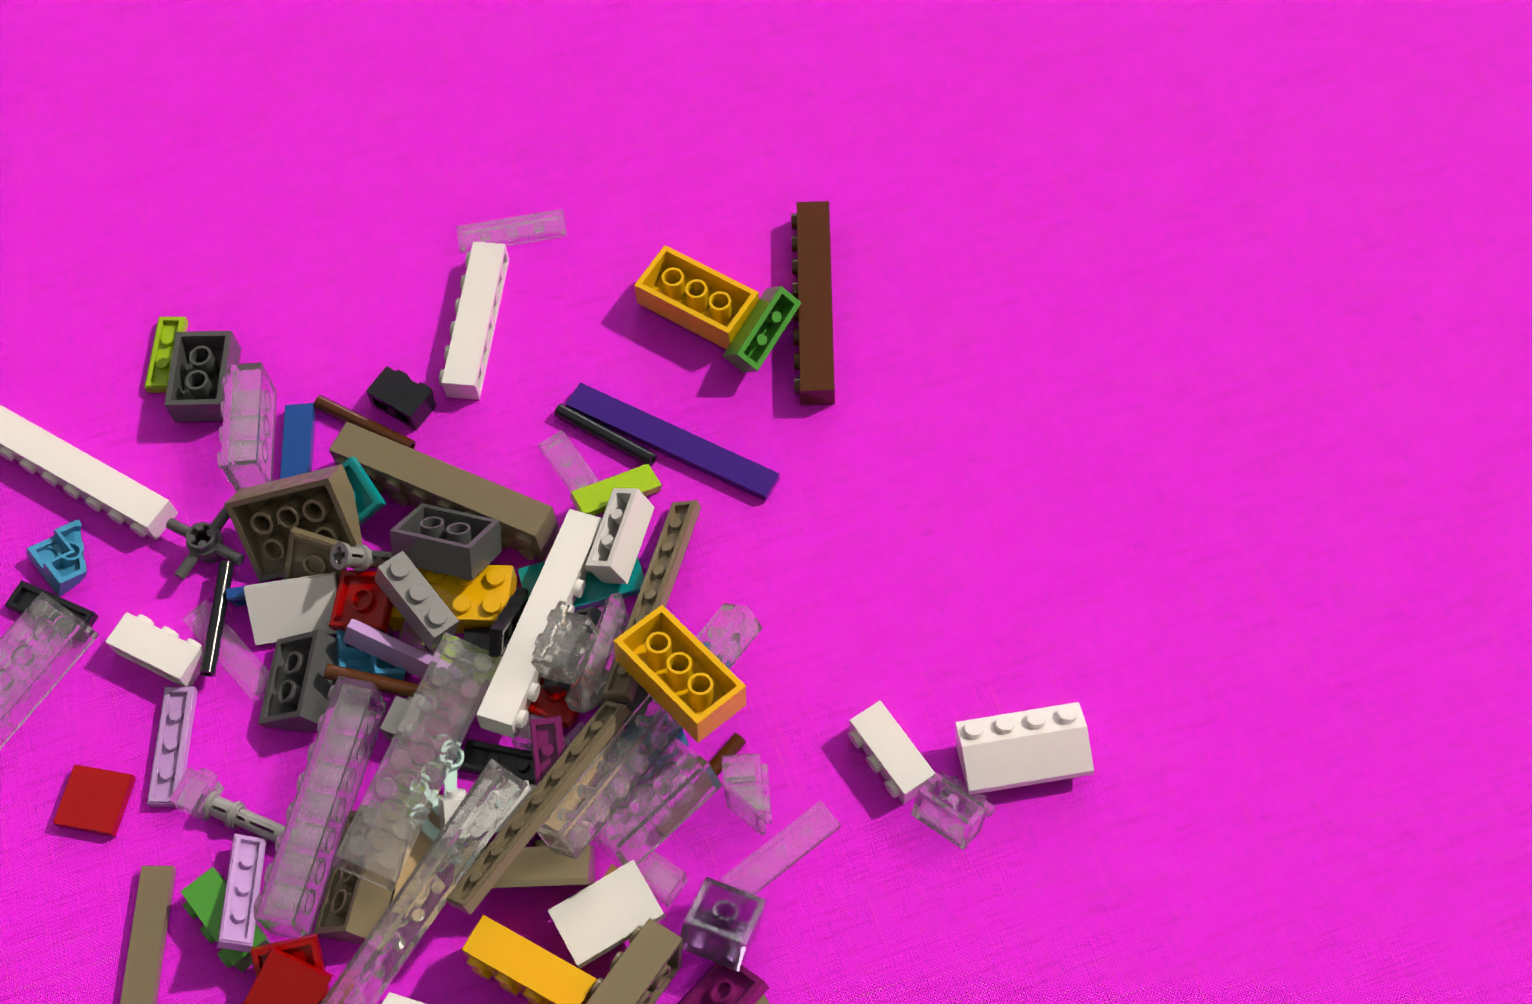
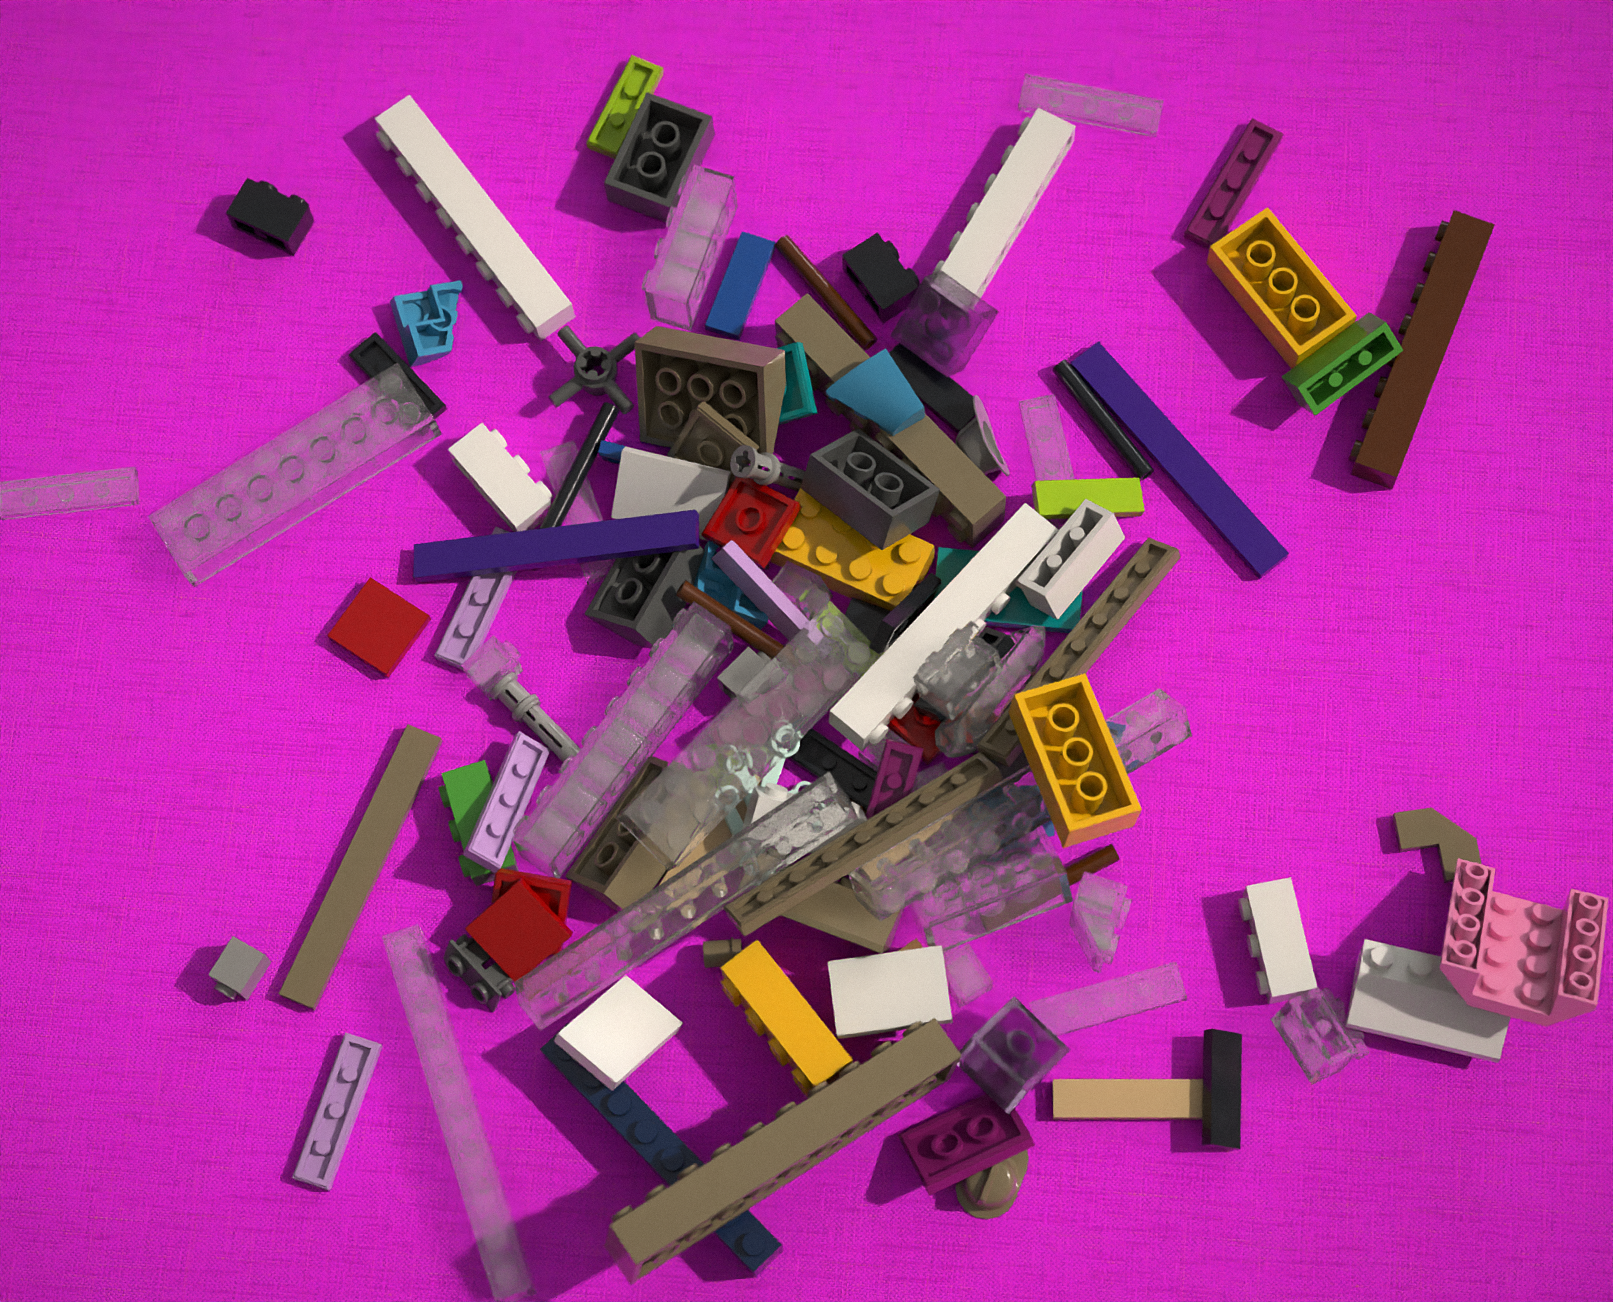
camera: 25 degrees right, 10 degrees up
(215, 680) = (556, 546): none -> dark purple tile
(415, 599) = (810, 548): light grey brick -> none
(427, 469) = (879, 393): none -> dark azure slope
(457, 940) = (719, 952): none -> dark tan piece
(460, 409) = (944, 323): none -> clear purple brick
(471, 458) = (935, 390): none -> black tile
(519, 481) = (979, 444): none -> light grey piece
(635, 244) = (1233, 184): none -> magenta tile
(829, 921) = (1127, 1099): none -> tan tile
(896, 883) = (1222, 1089): none -> black tile
(990, 631) = (1431, 829): none -> dark tan tile
(1076, 685) = (1522, 953): none -> bright pink slope

